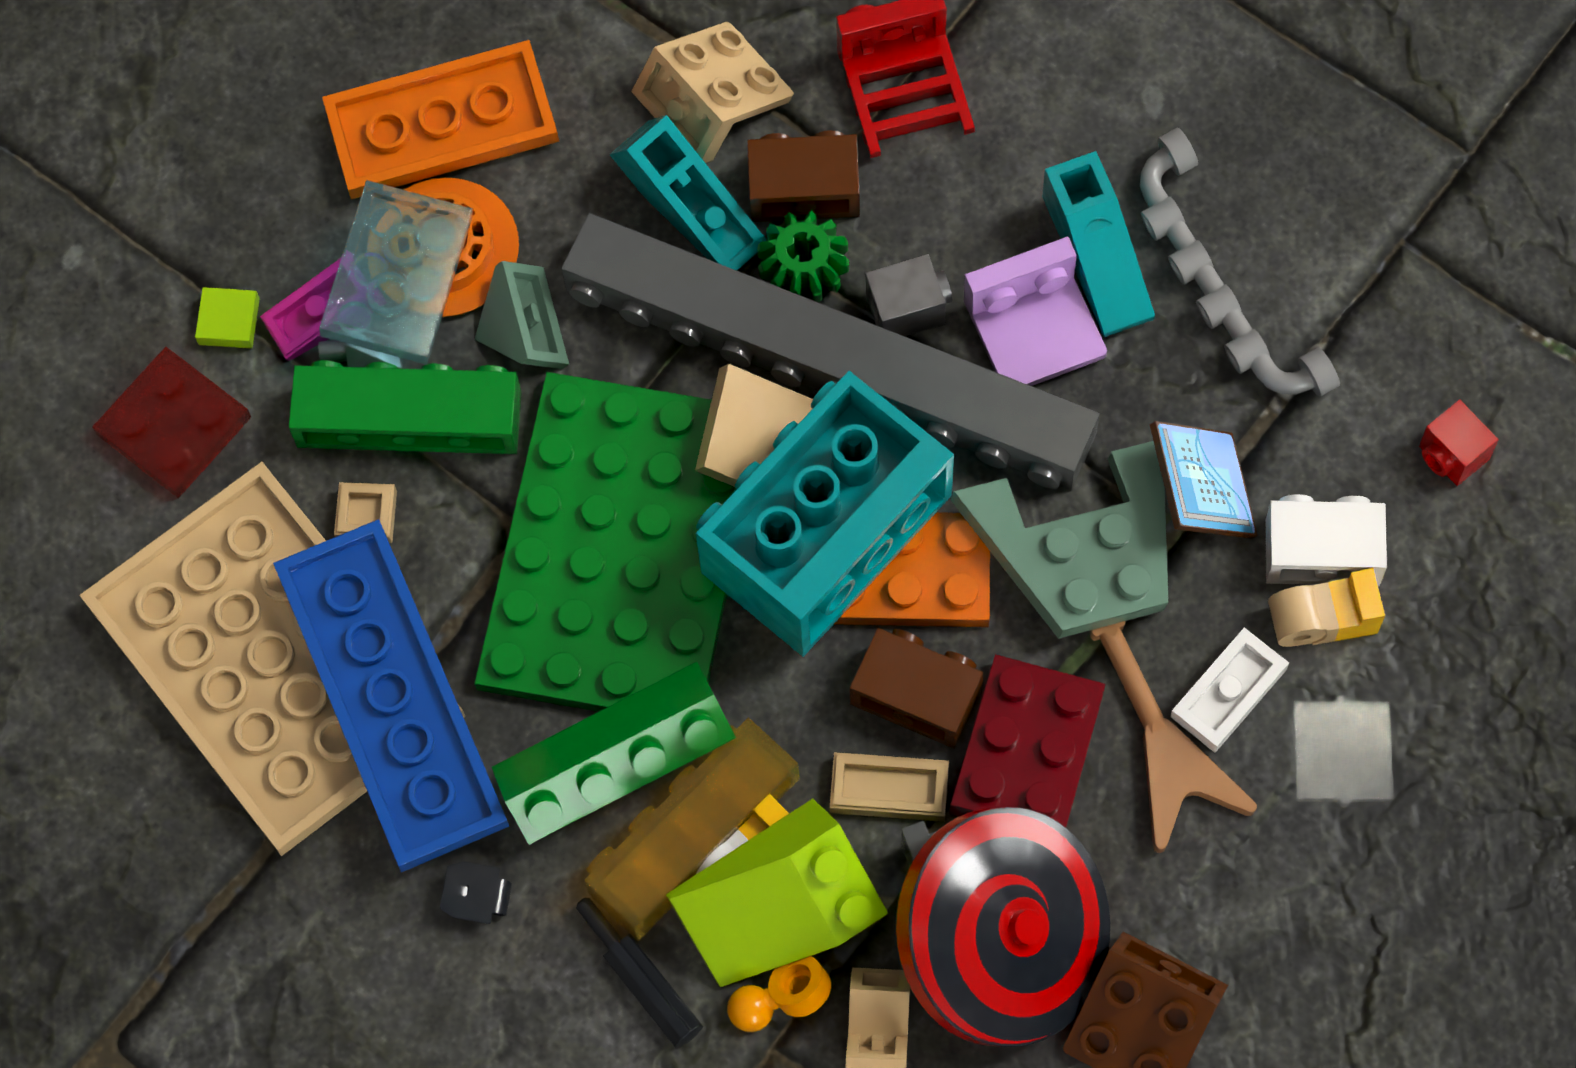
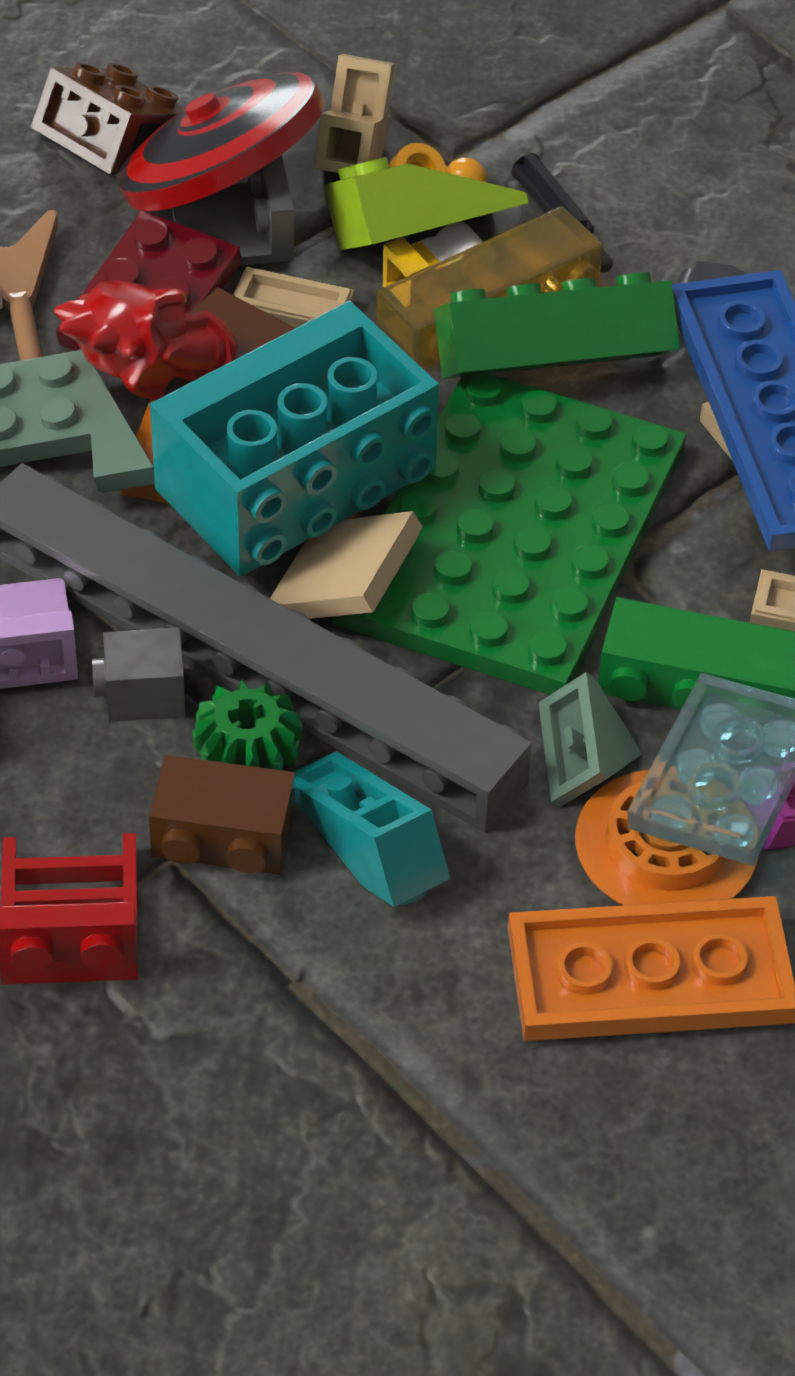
camera: 175 degrees left, 20 degrees down
(709, 85) = (300, 937): tan bracket -> none
(1018, 622) = (146, 335): none -> red head

